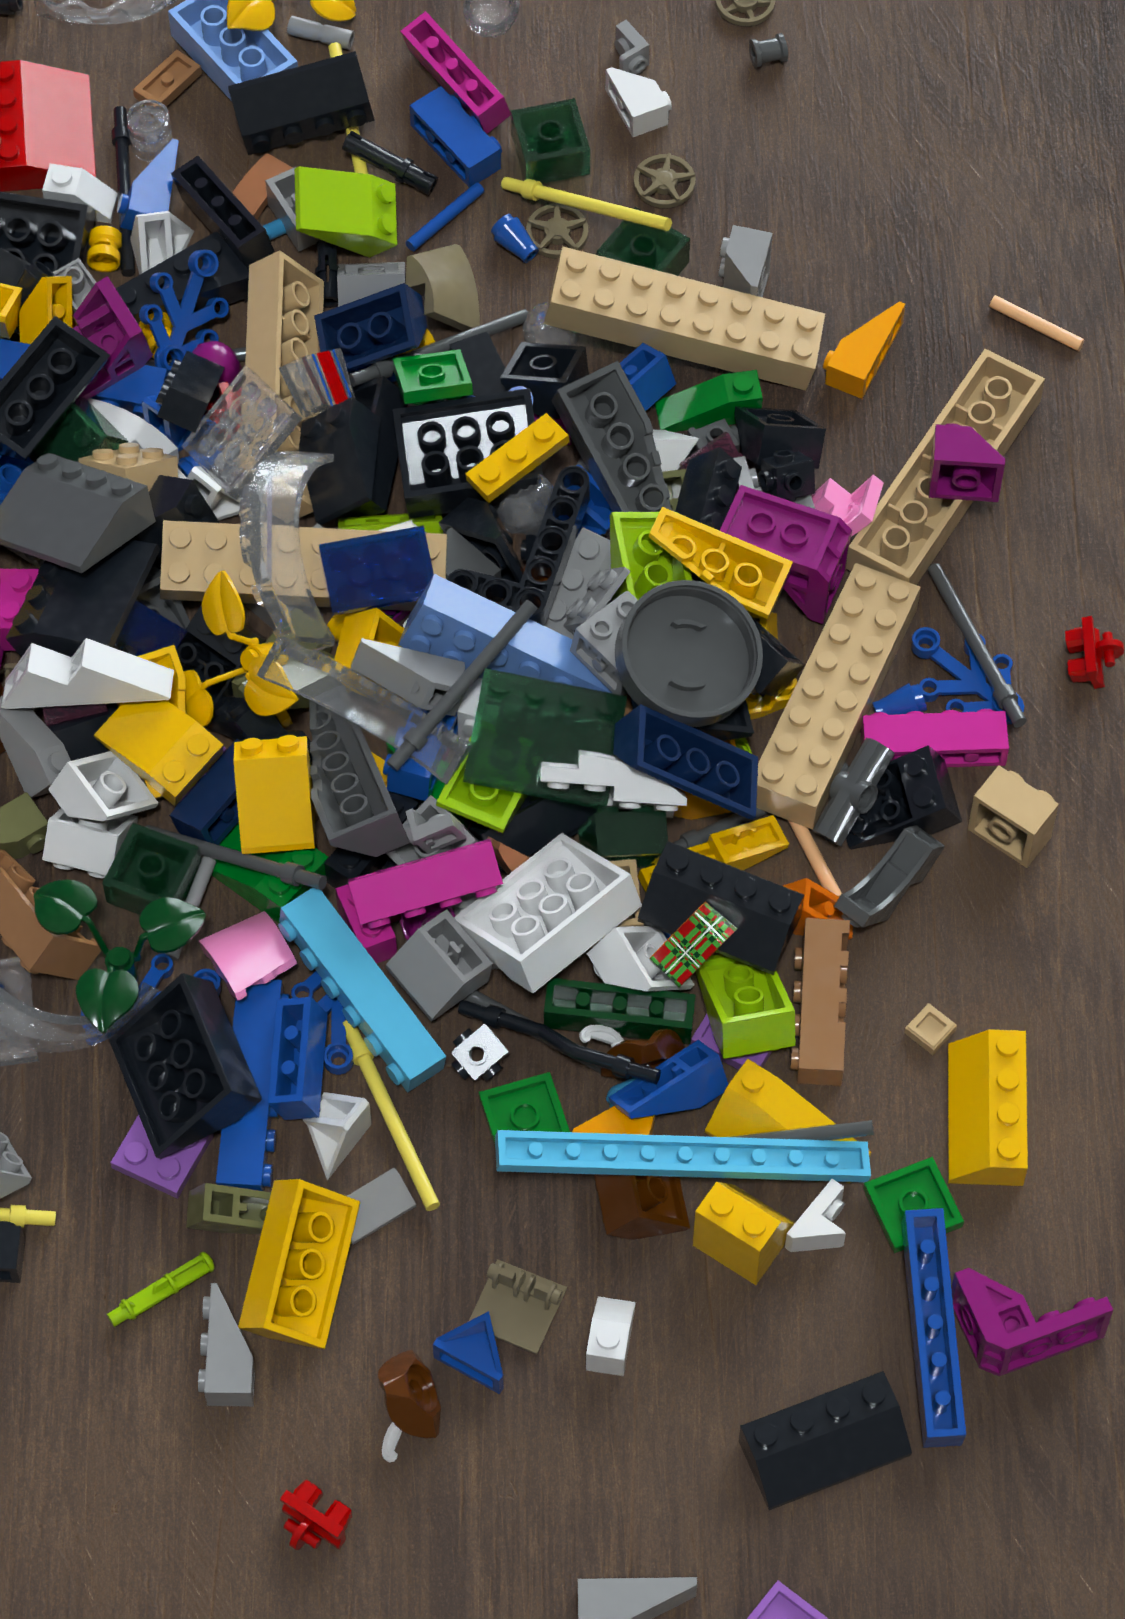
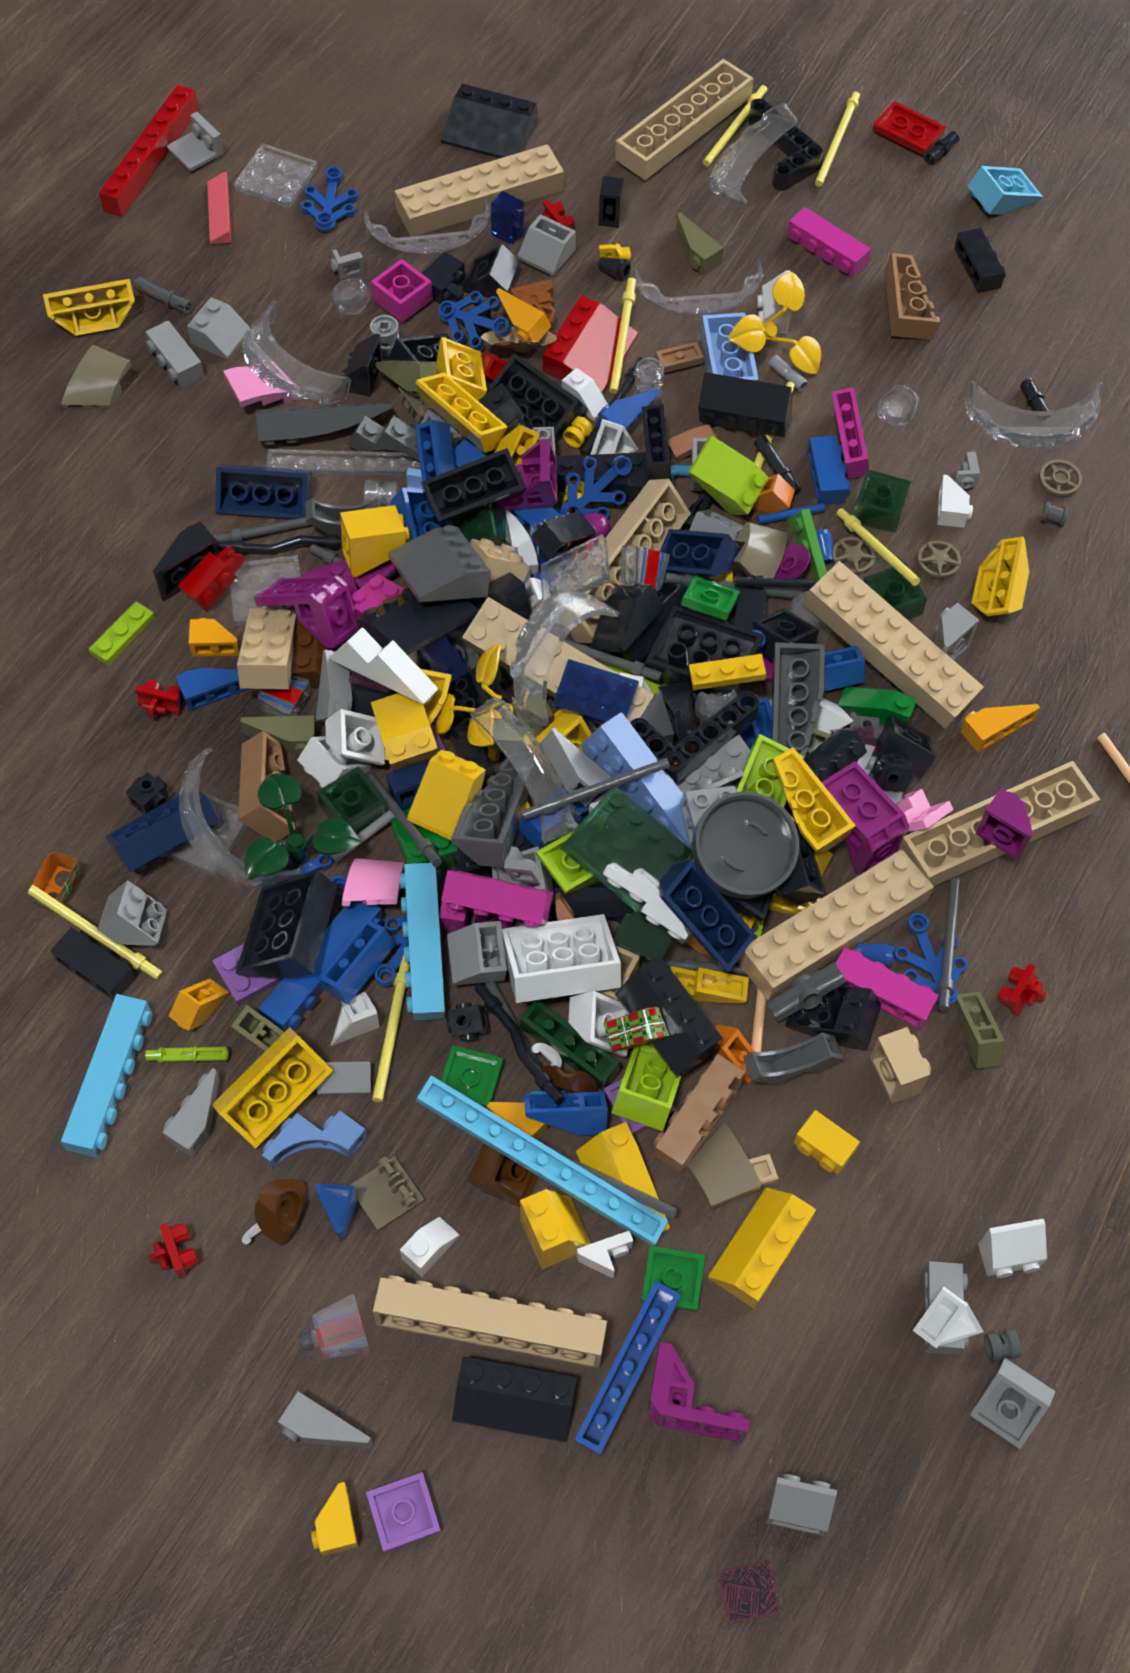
camera: 30 degrees right, 0 degrees up
(53, 37) = (628, 300): none -> light yellow bar
(81, 1372) = (107, 1076): none -> medium azure brick
(132, 1223) = (197, 1004): none -> light orange slope
(397, 514) = (636, 668): none -> dark grey bar
(414, 1274) = (298, 1134): none -> medium blue arch
(415, 203) = (774, 496): none -> orange slope
(471, 324) = (759, 582): none -> black bar
(483, 233) = (805, 534): none -> bright green wing
(494, 279) = (793, 562): none -> magenta dish
(573, 1490) = (337, 1331): none -> clear torso
(744, 1371) = (490, 1321): none -> tan brick
(759, 167) = (1002, 579): none -> yellow wedge
(888, 1049) = (722, 1169): none -> dark tan slope
(984, 953) = (826, 1143): none -> yellow brick
(1075, 726) = (980, 1031): none -> olive slope

